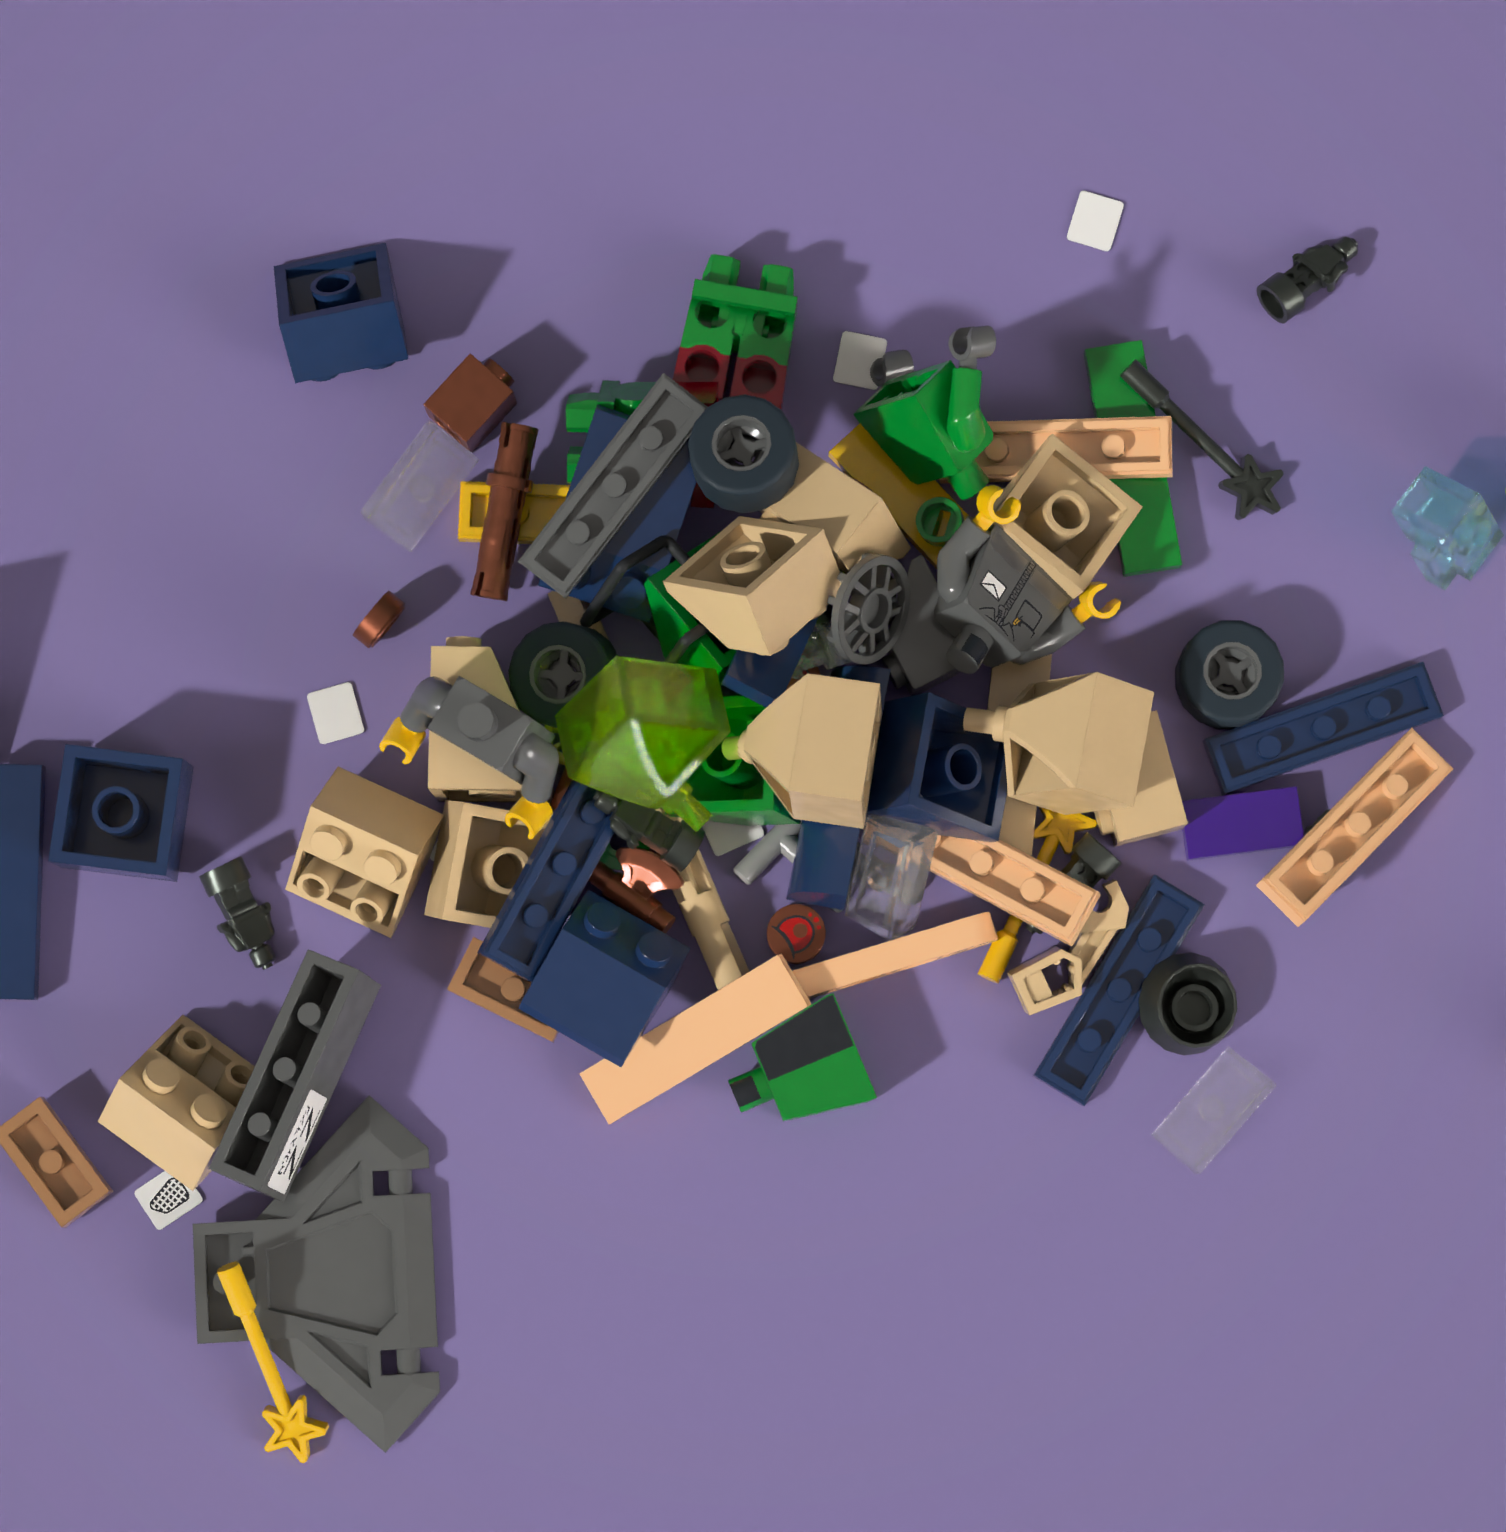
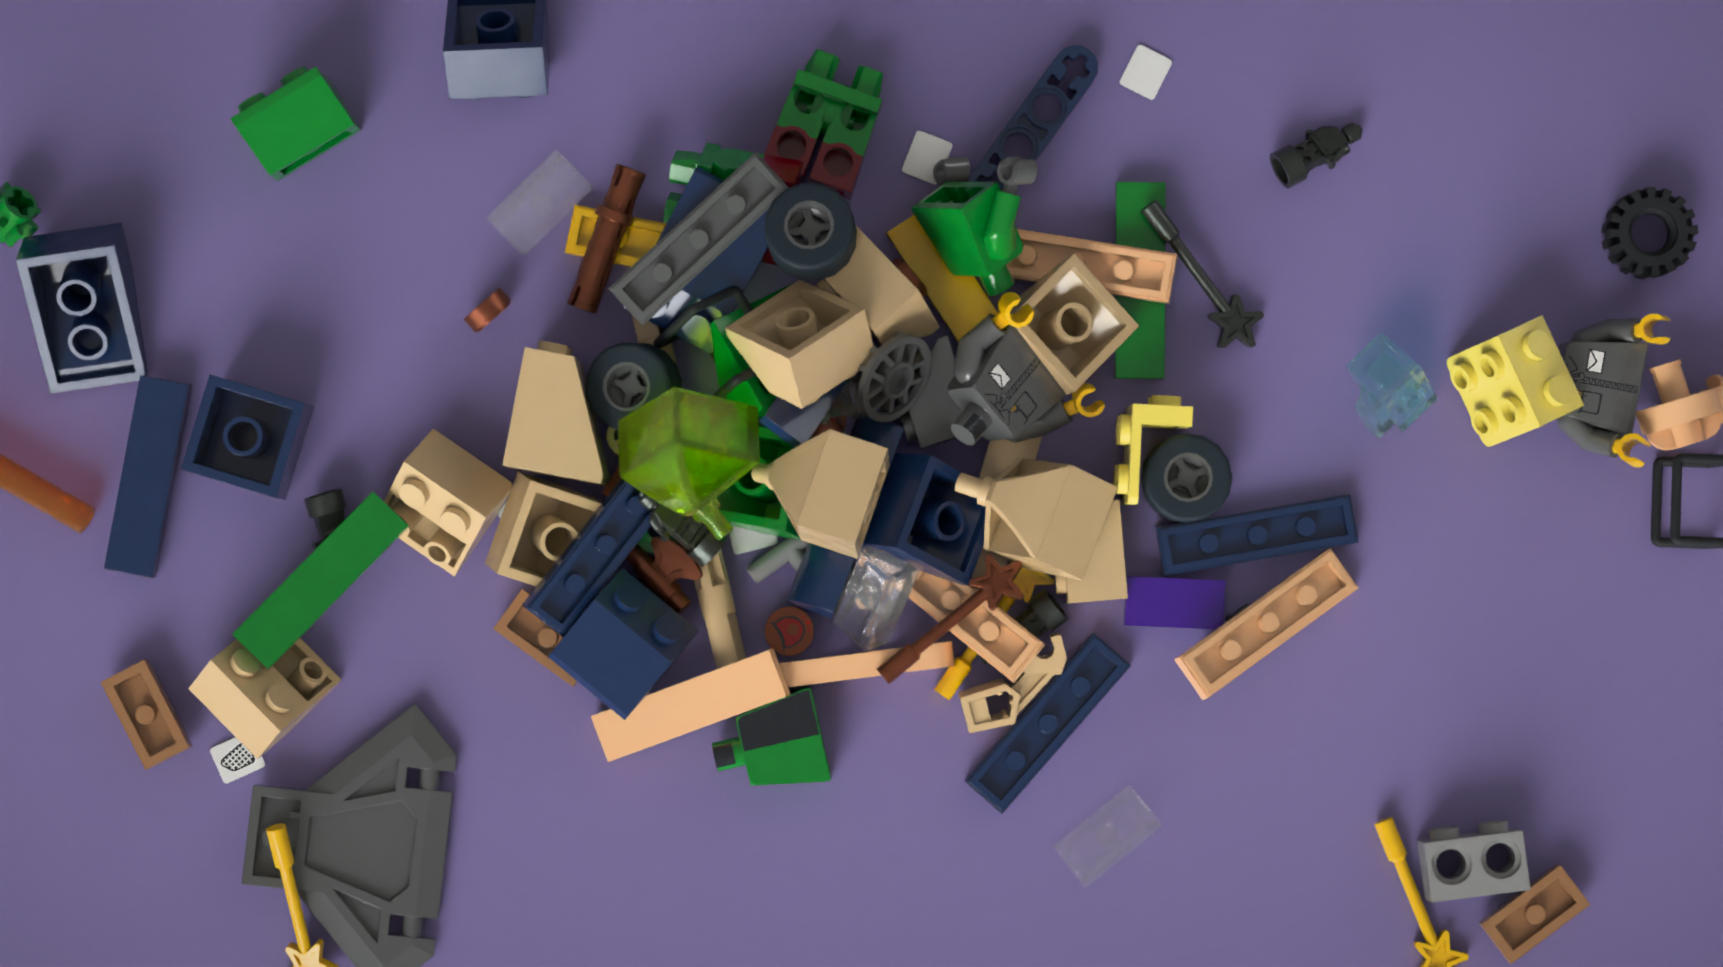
camera: 15 degrees right, 5 degrees up
(119, 438) = (295, 122): none -> green slope
(234, 964) = (320, 580): none -> green tile
(295, 1075) = (356, 680): dark grey brick -> none
(335, 713) = (439, 380): white sticker -> none
(472, 401) = (595, 138): copper brick -> none
(488, 732) = (557, 431): dark grey torso -> none
(930, 517) = (959, 306): green hinge -> none
(966, 298) = (1027, 124): none -> dark blue beam
(1026, 836) = (991, 586): none -> copper piece
(1187, 603) = (1159, 412): none -> light yellow bracket
(1187, 1003) = (1102, 744): pearl dark grey hat -> none

